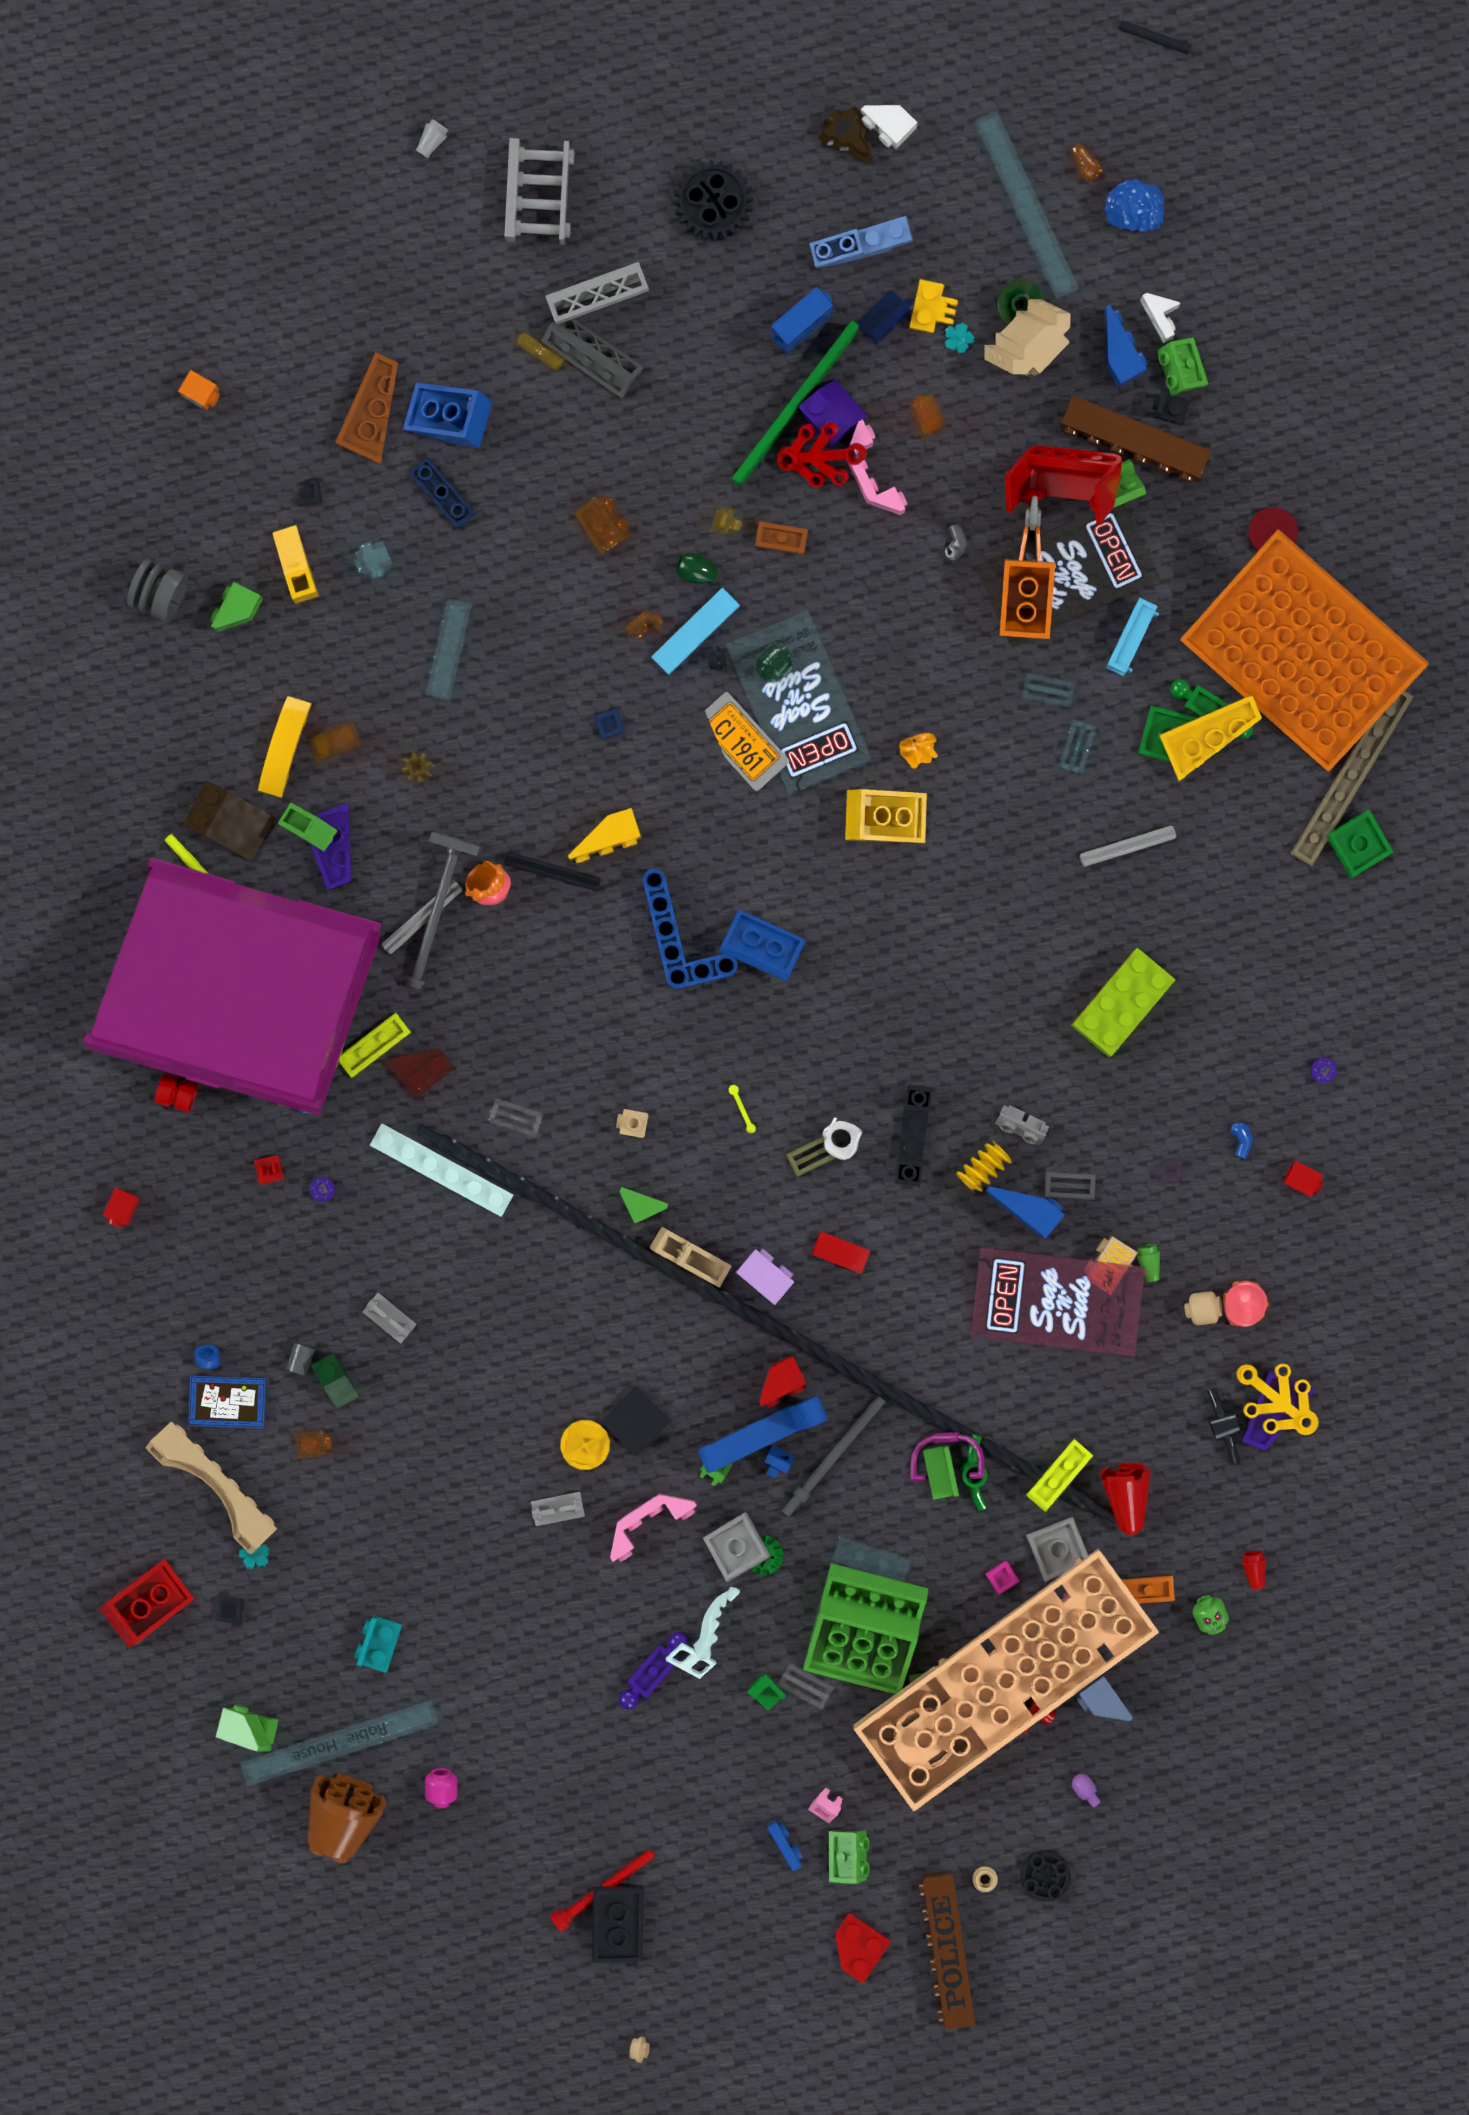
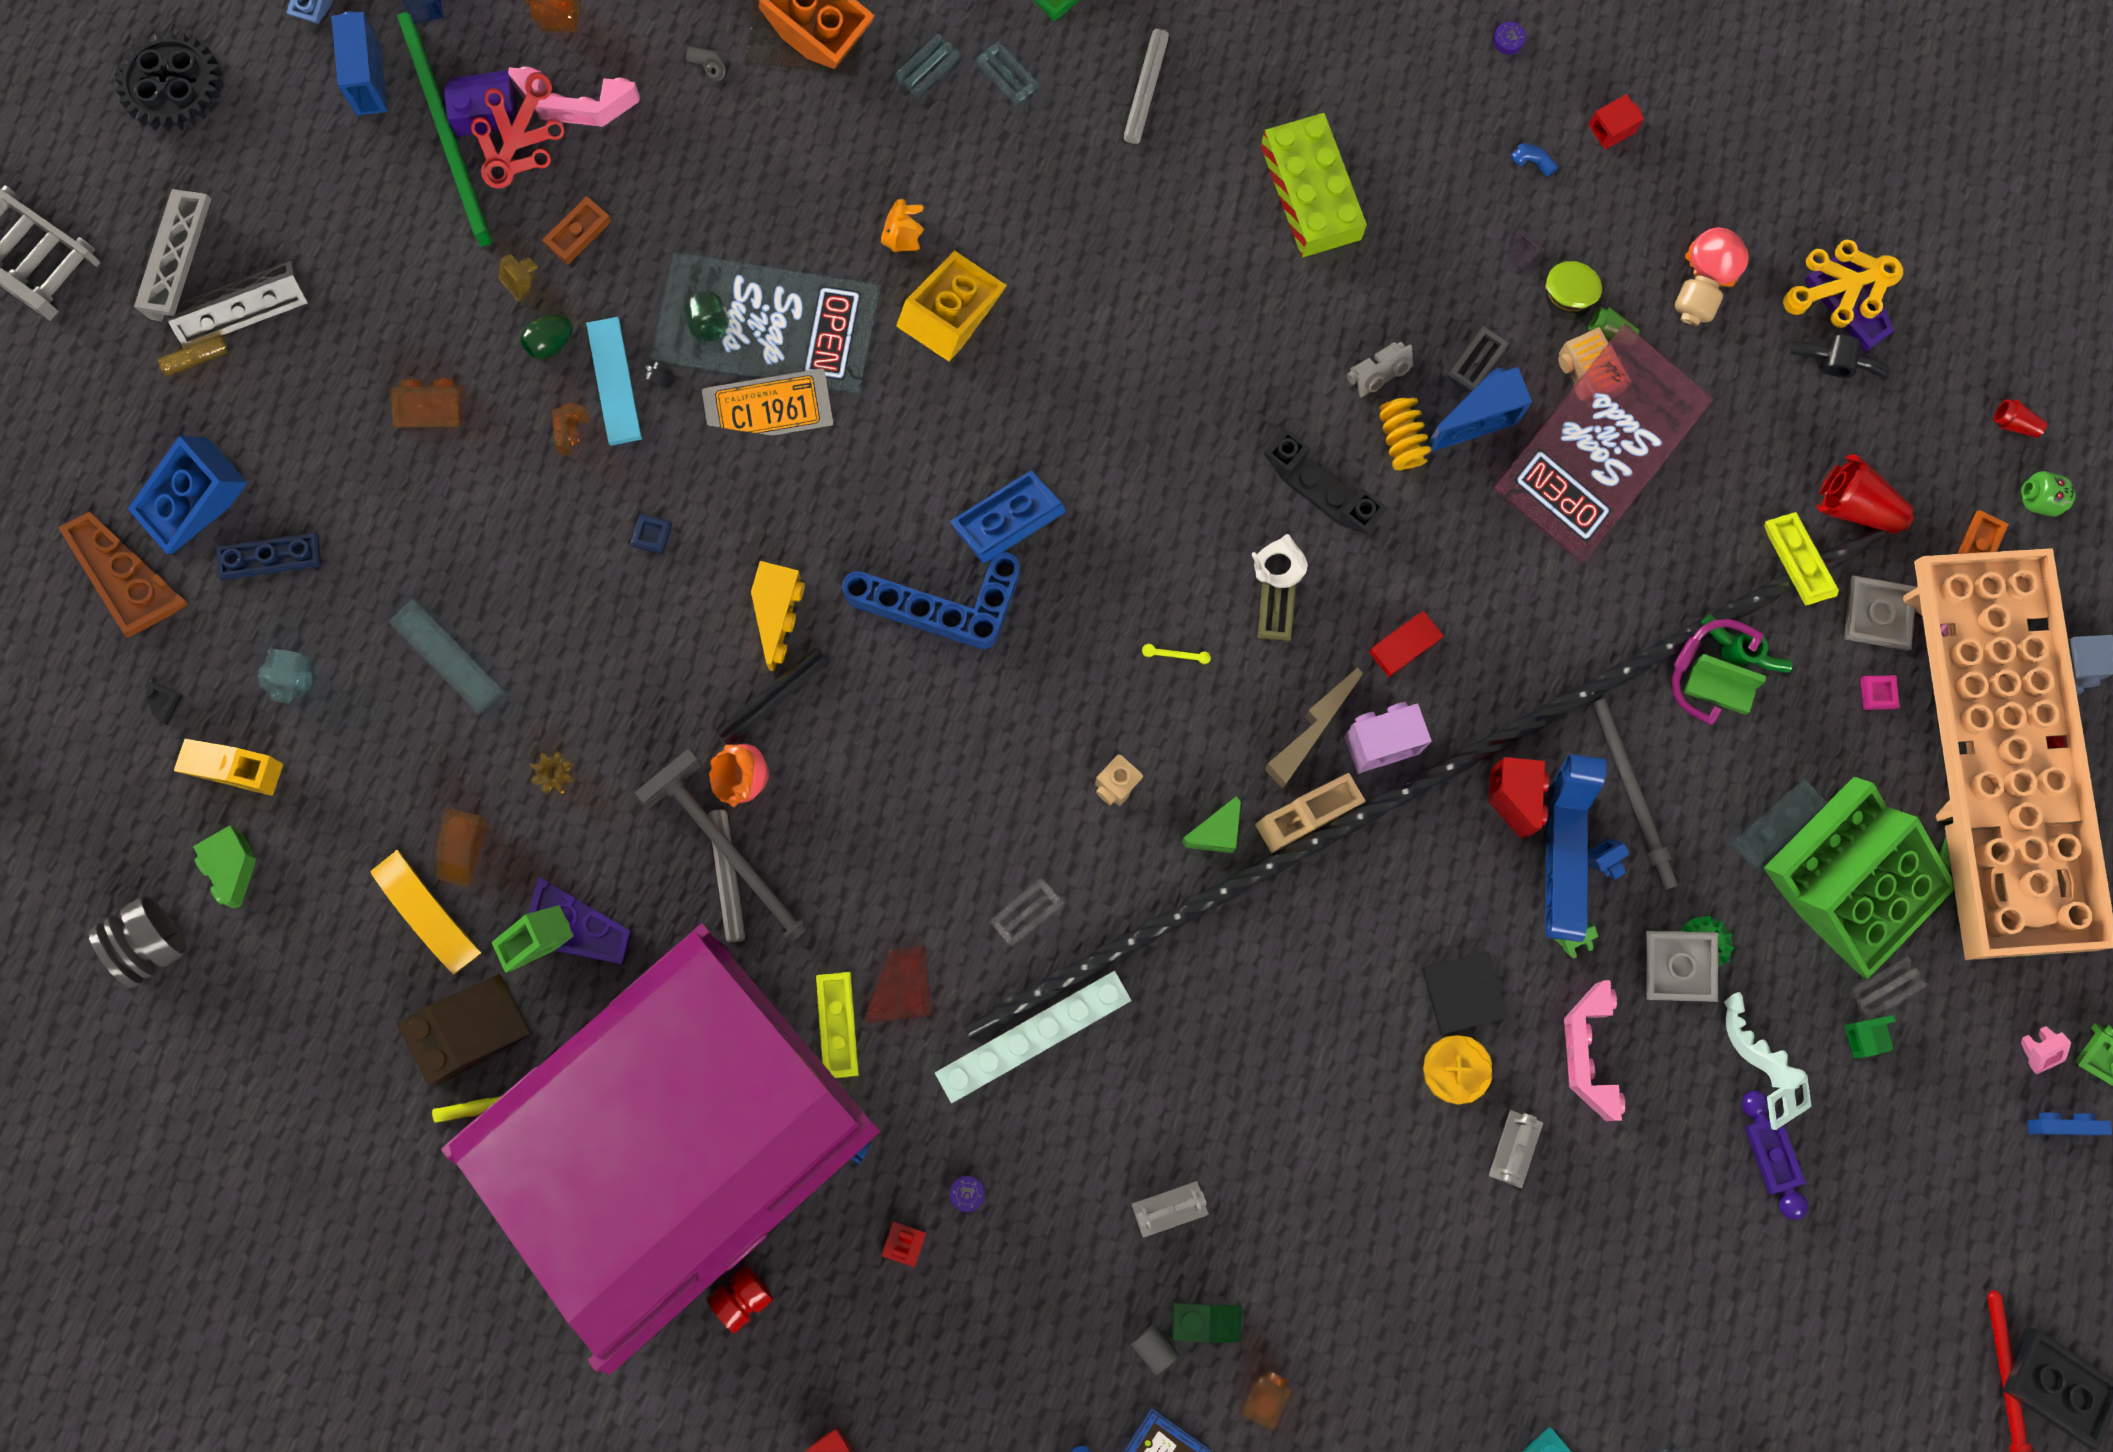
camera: 60 degrees left, 10 degrees down
(712, 1222) = (1287, 761): none -> dark tan slope
(1160, 1219) = (1572, 289): none -> lime piece

